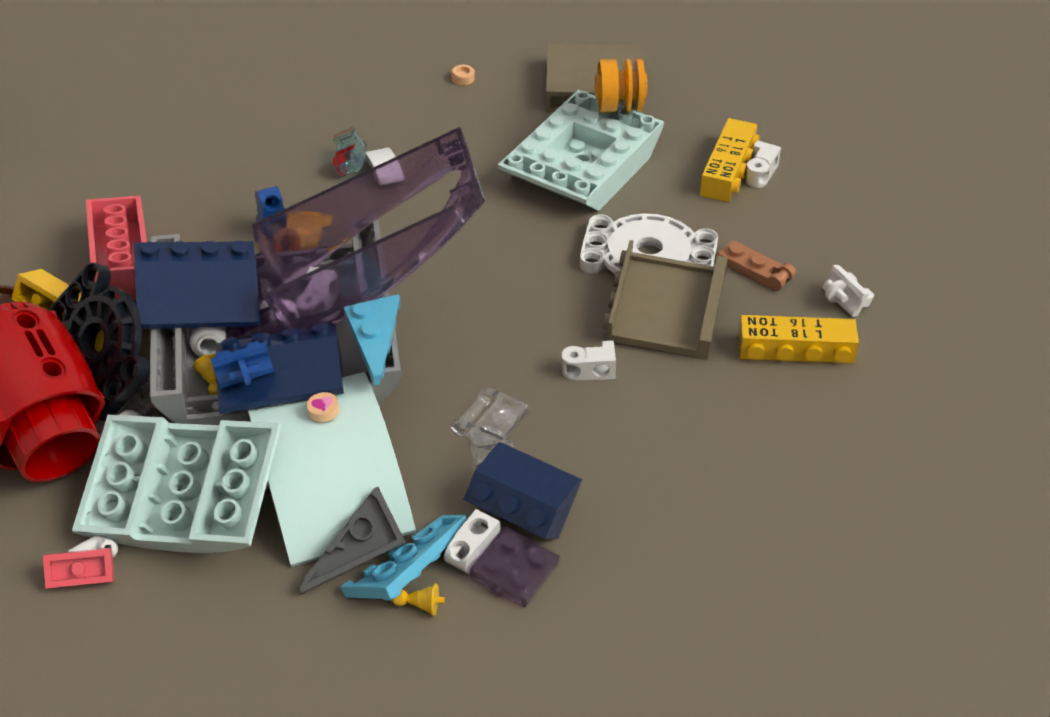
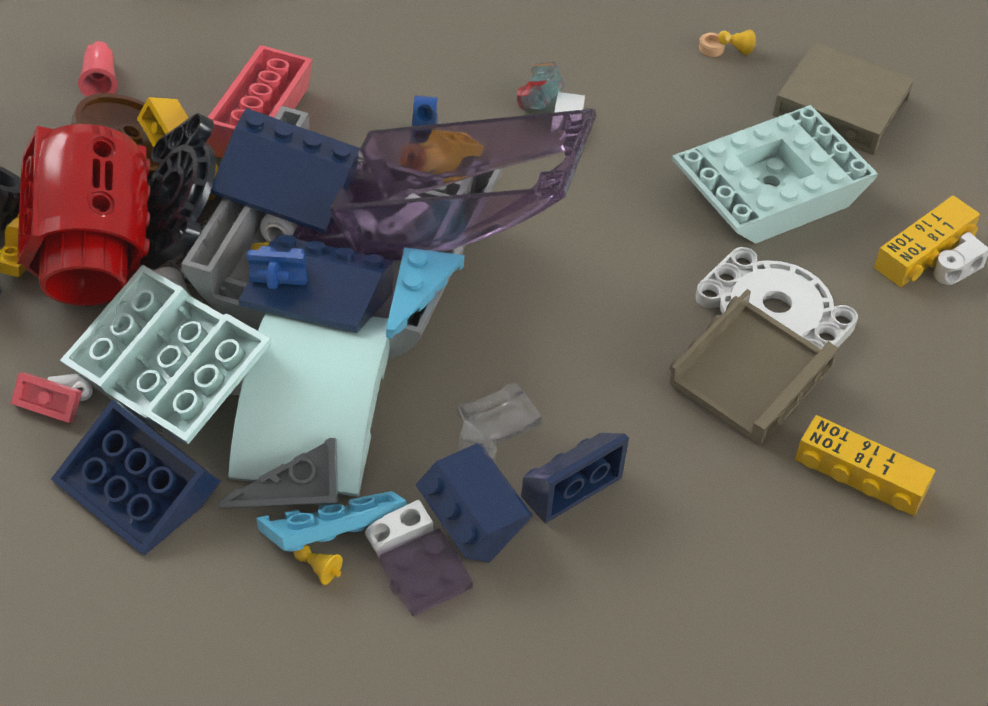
camera: 25 degrees right, 5 degrees up
(208, 599) = (134, 478): none -> dark blue slope
(323, 407) = (327, 339): light nougat tile -> none
(487, 63) = (742, 41): none -> yellow piece
(587, 433) = (575, 475): none -> dark blue slope
(589, 362) = (634, 399): white leg -> none
(620, 85) = (838, 116): light orange wheel -> none
(757, 265) = (878, 367): nougat plate -> none
(846, 291) = (953, 434): white hips -> none

